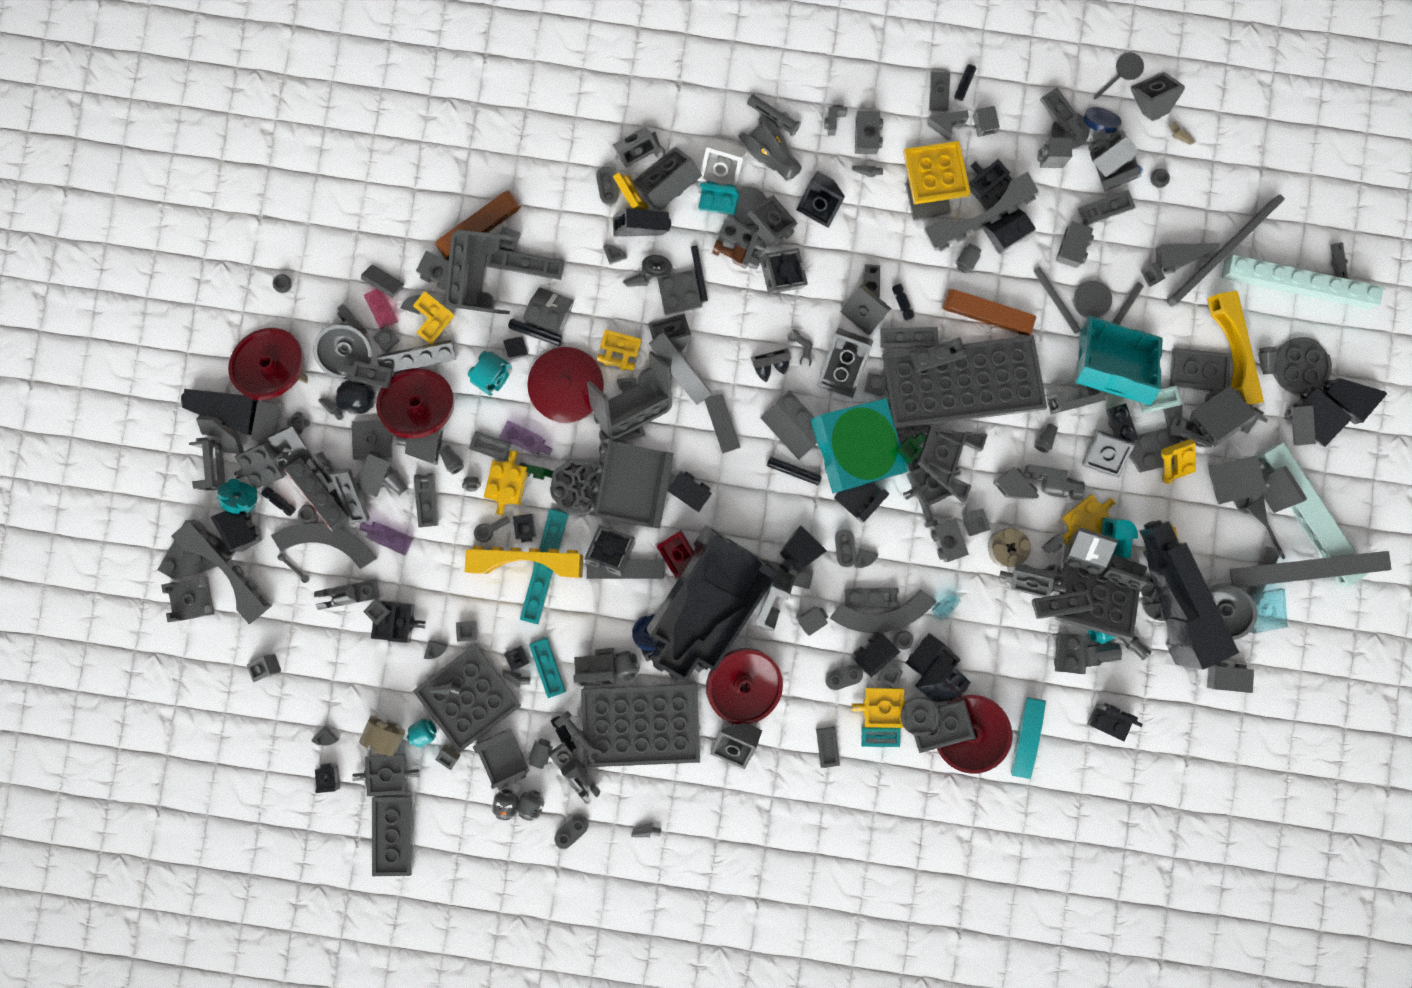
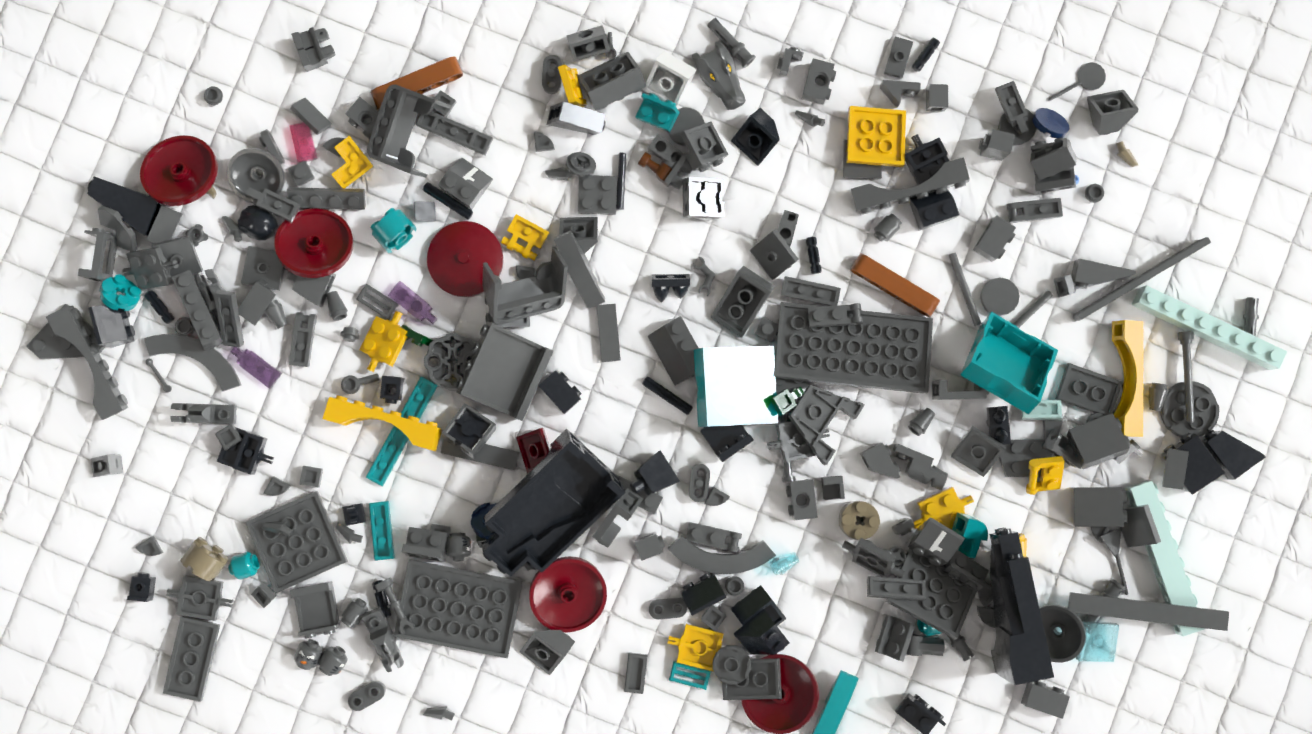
camera: 10 degrees right, 0 degrees up
(188, 599) = (49, 382): dark grey panel -> none
(366, 216) = (310, 48): none -> dark grey hips
(1282, 299) = (1185, 340): none -> dark grey piece

